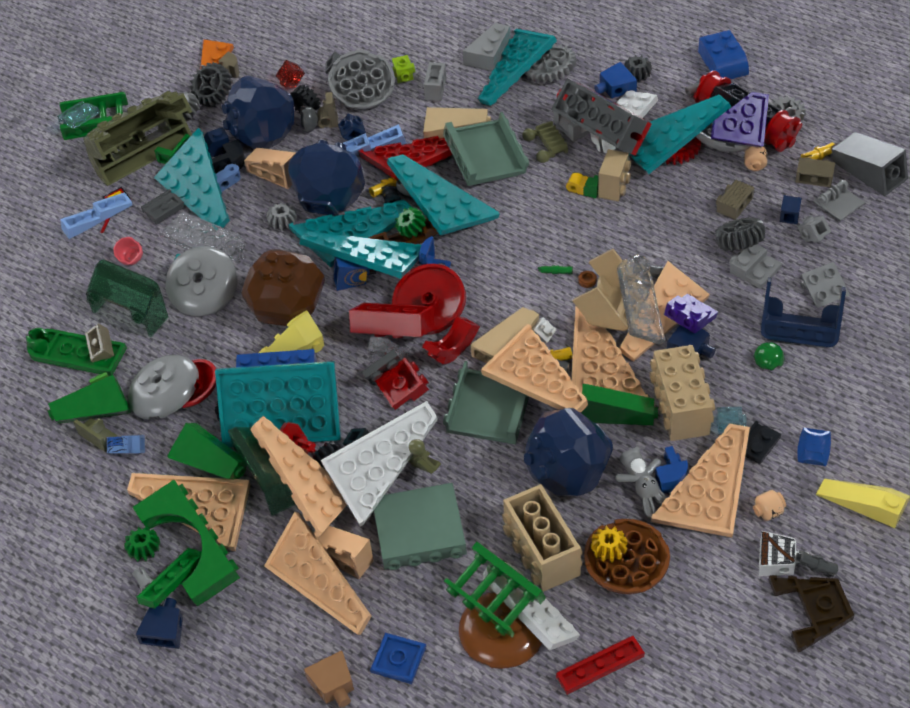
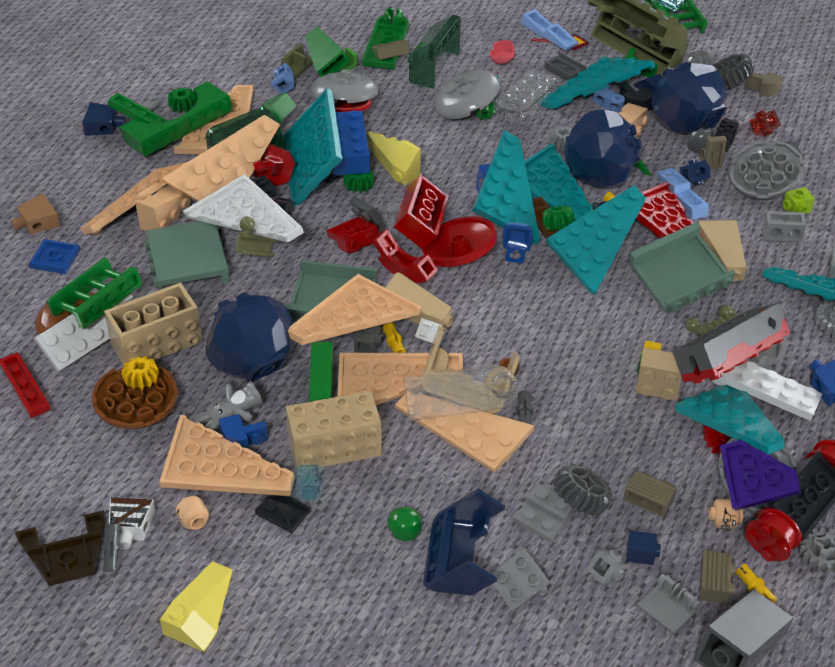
camera: 80 degrees right, 5 degrees down
(214, 51) = (793, 75): orange wing -> none
(282, 286) = (449, 133): reddish brown rock -> none
(556, 269) = (520, 342): green piece -> none
(690, 312) = (449, 438): dark purple plate -> none
(699, 340) = (419, 449): dark blue torso -> none
(814, 446) = (273, 556): blue piece -> none

